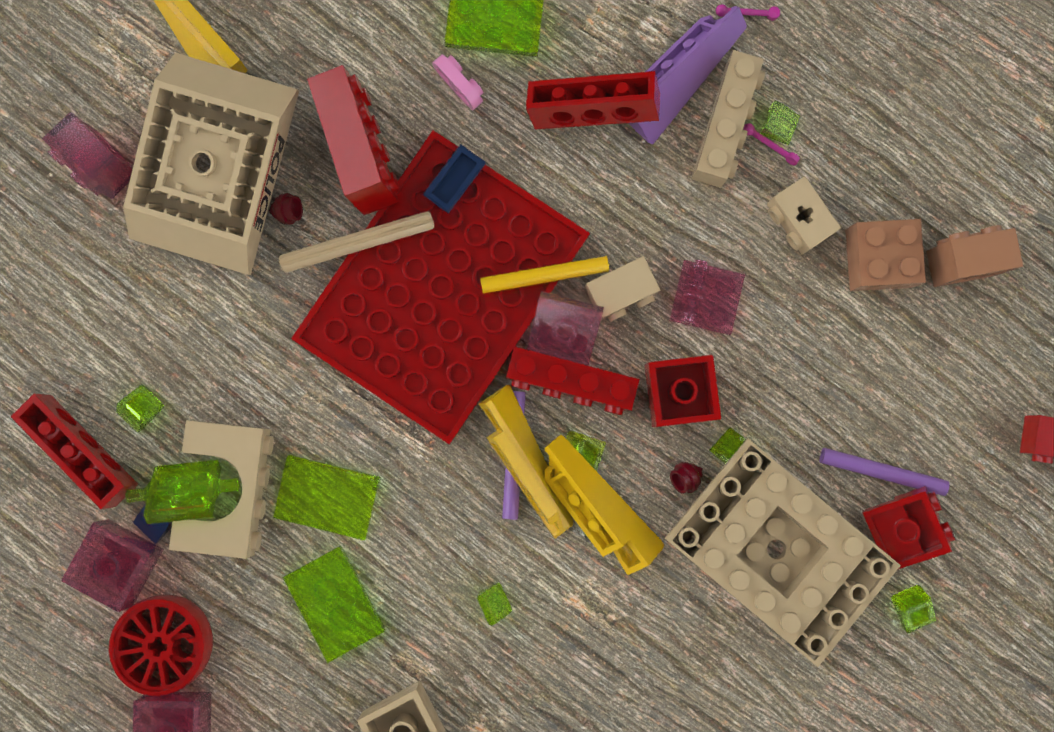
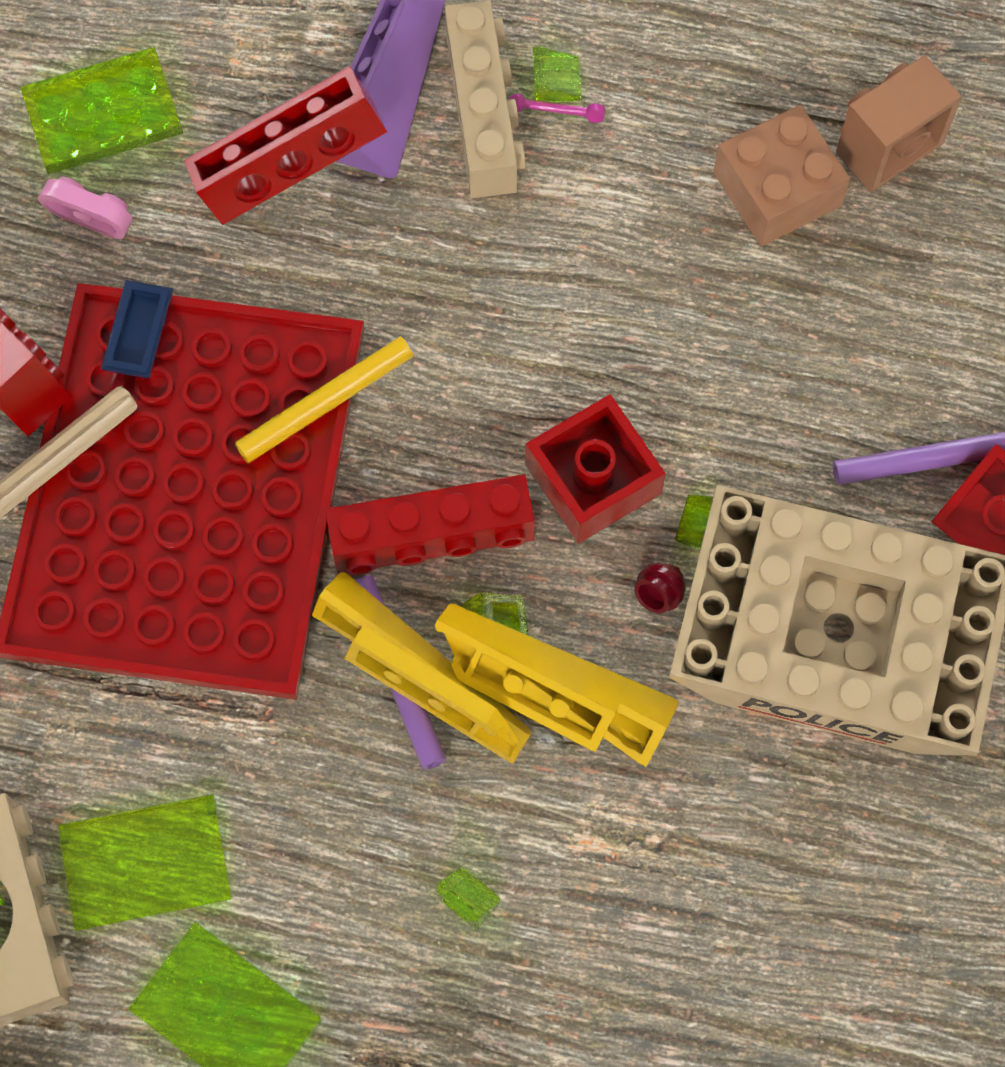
camera: 25 degrees left, 15 degrees down
(565, 328) = (386, 453): clear pink plate -> none
(623, 288) = (444, 375): tan brick -> none
(707, 297) = (568, 336): clear pink hinge -> none
(798, 200) = (645, 174): tan brick -> none

